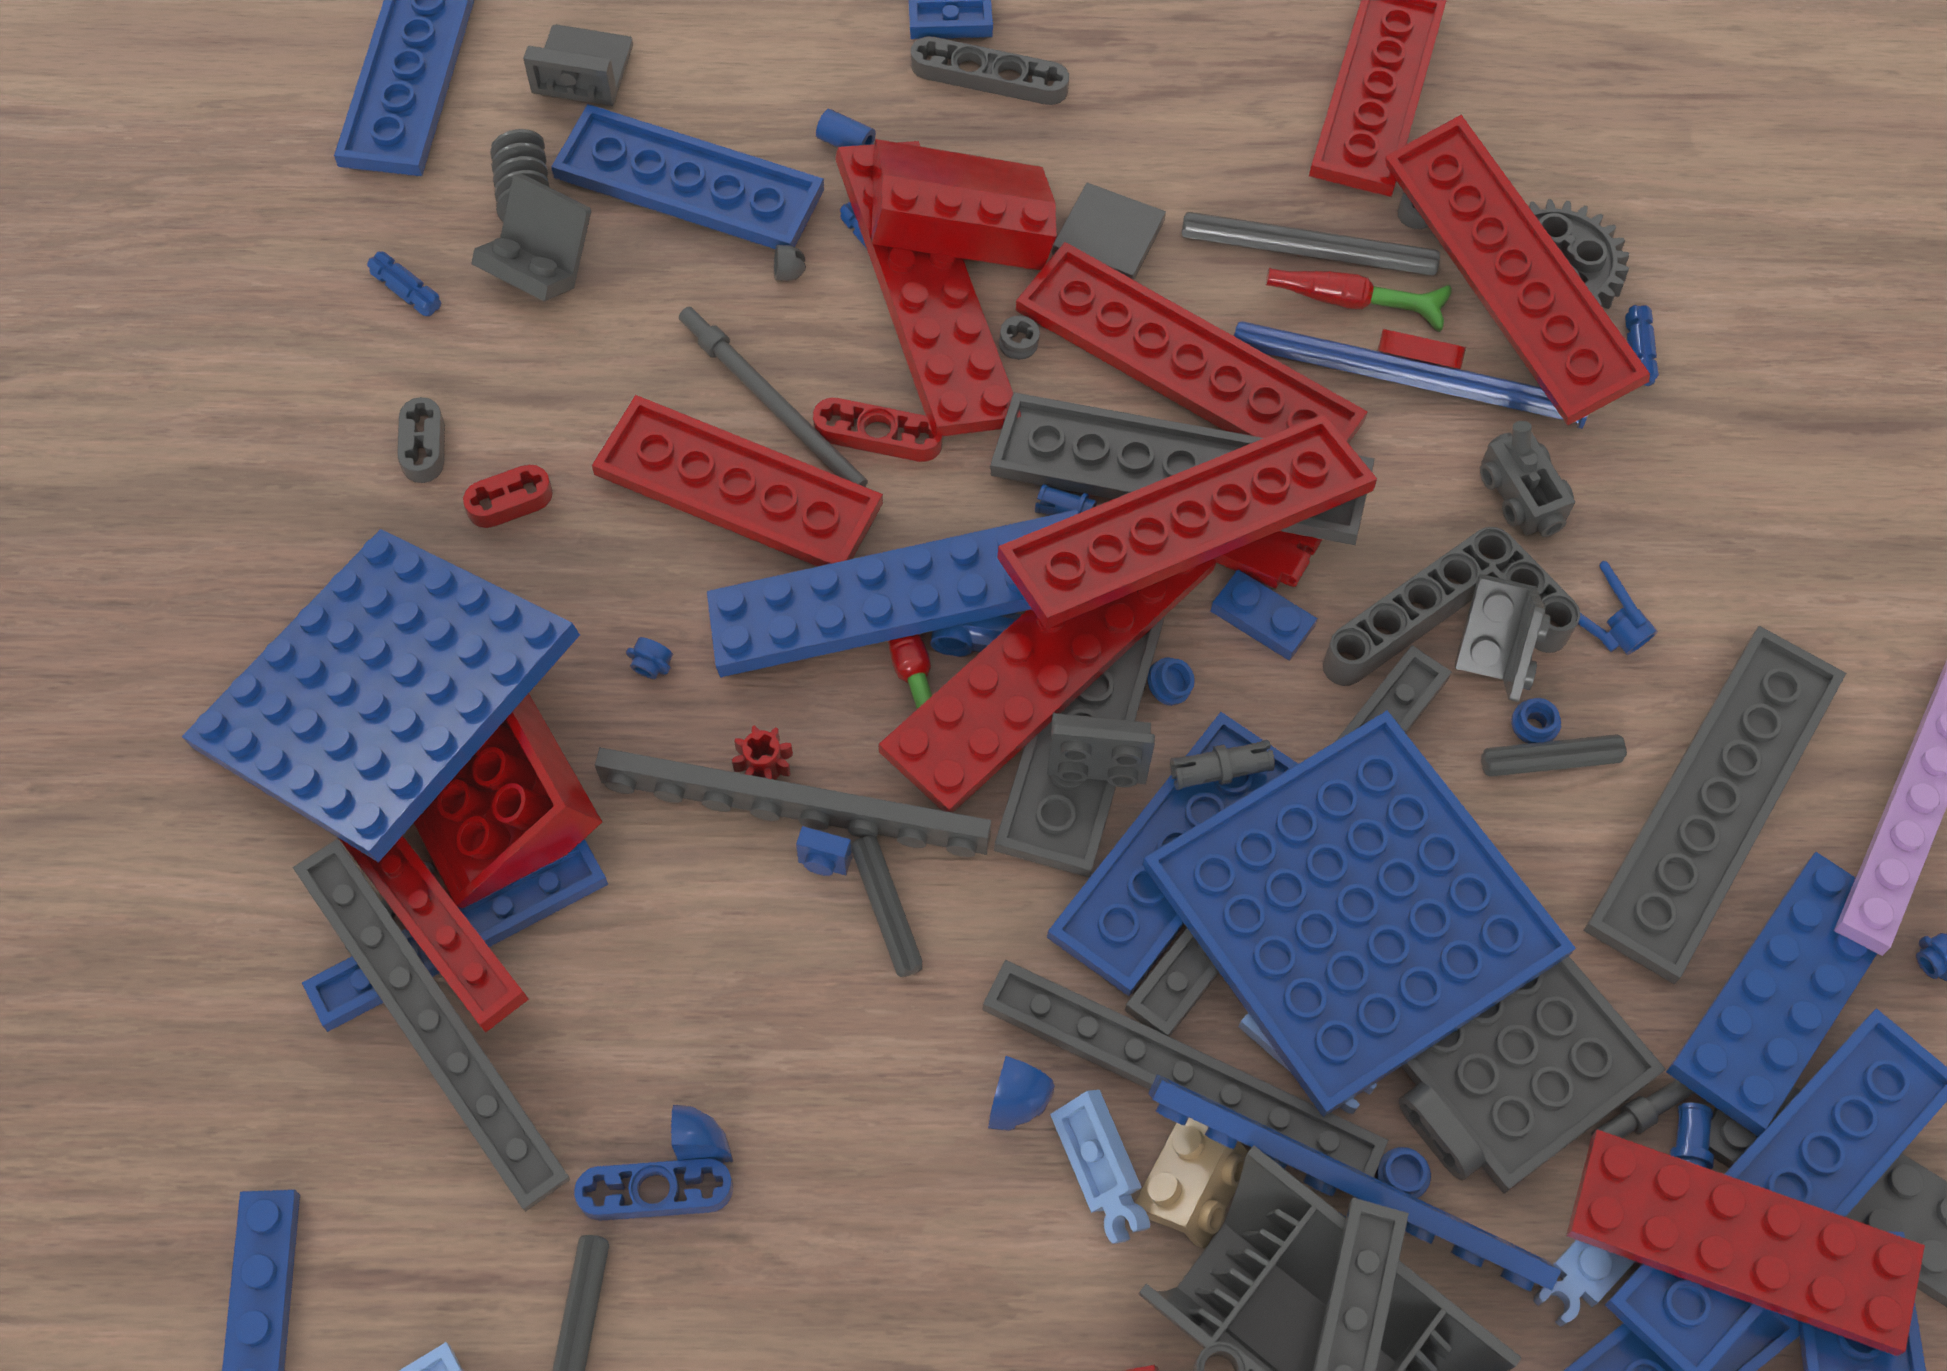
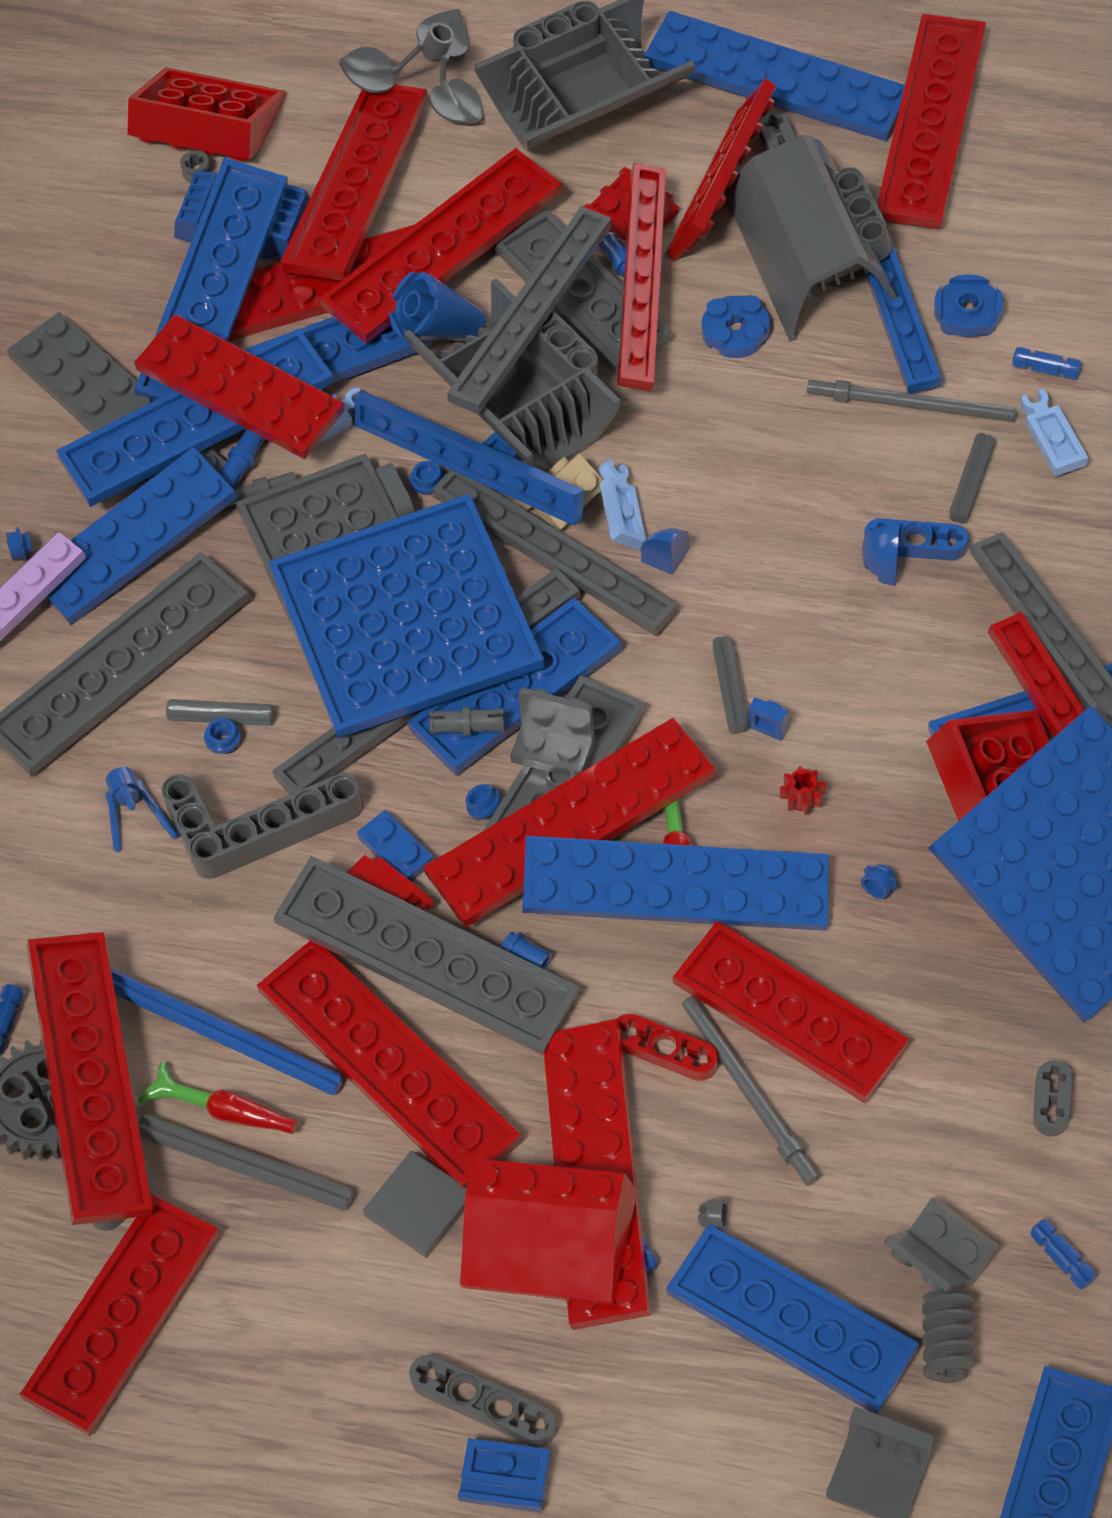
camera: 160 degrees left, 5 degrees down
(507, 496) = (981, 1036): red beam -> none
(810, 805) = (786, 756): dark grey plate -> none
(843, 131) = (635, 1345): blue piece -> none
(1027, 345) = (522, 1103): dark grey bush -> none
(1184, 520) = (440, 865): red plate -> none
(1421, 348) = (189, 1036): red beam -> none
(1502, 633) = (215, 776): dark grey bracket -> none
(1527, 482) = (154, 917): dark grey brick -> none

